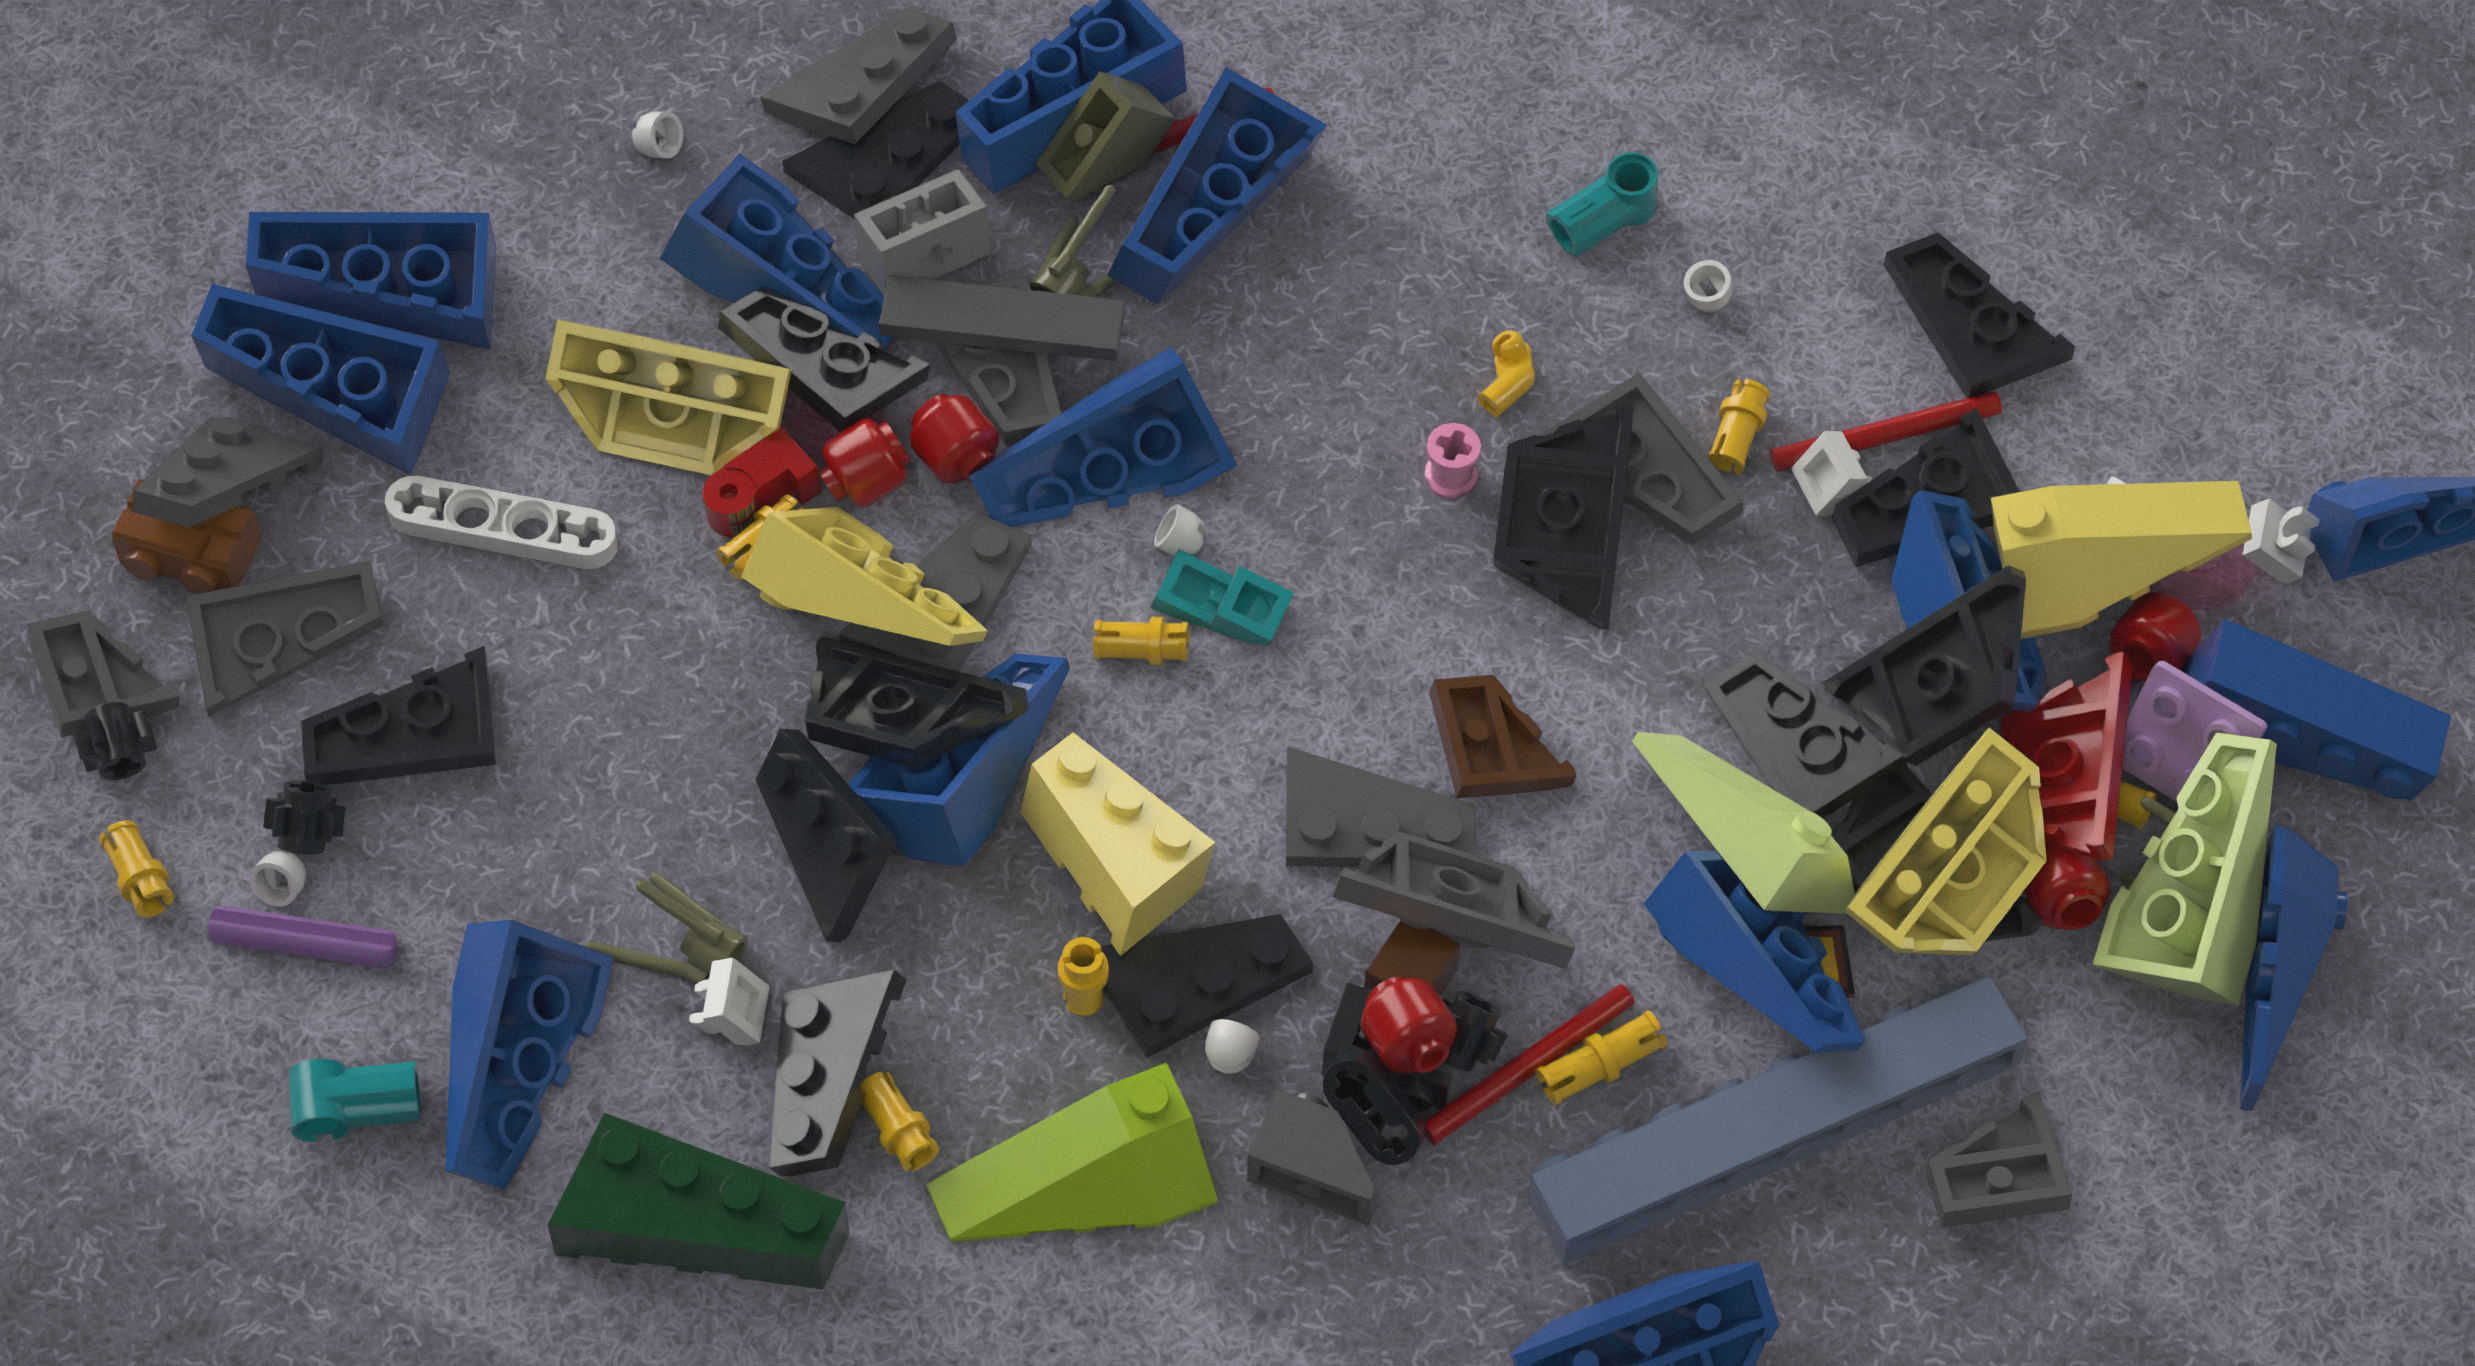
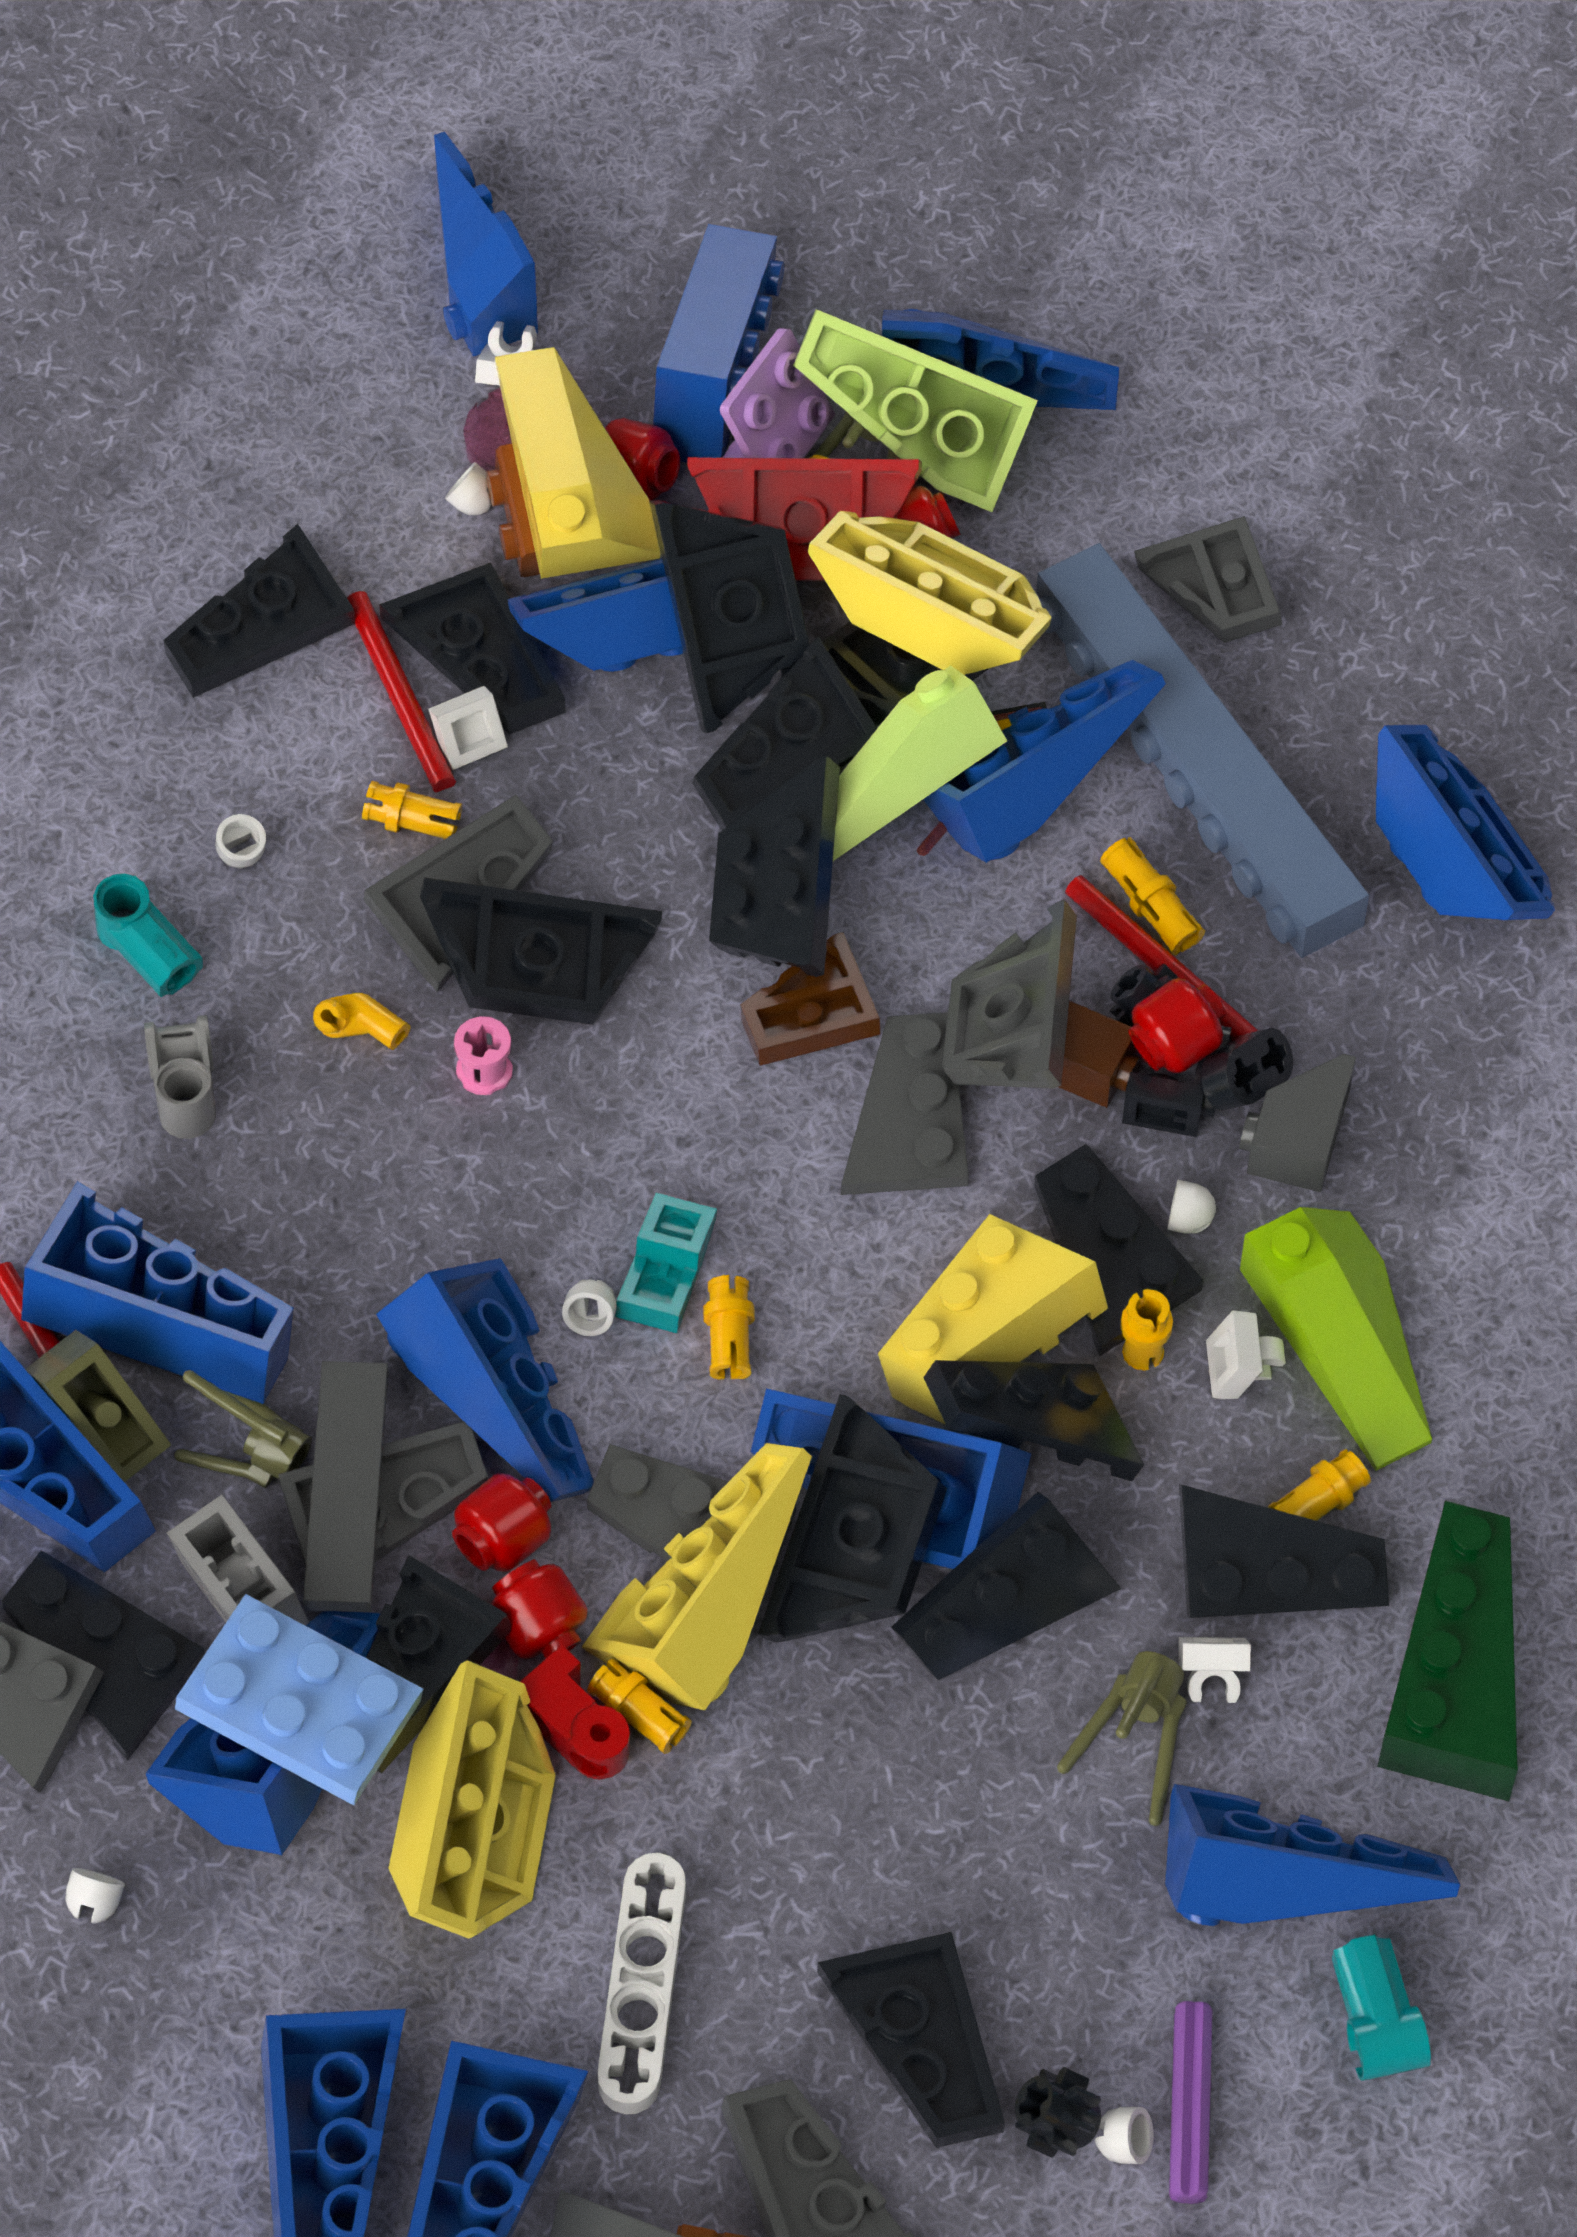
camera: 95 degrees left, 0 degrees up
(772, 245) = (299, 1699): none -> light blue plate
(1005, 867) = (1036, 1403): none -> black wing
(1053, 1065) = (1240, 1355): none -> white tile
(1455, 228) = (182, 1068): none -> light grey piece
(1629, 710) = (778, 874): none -> black wing

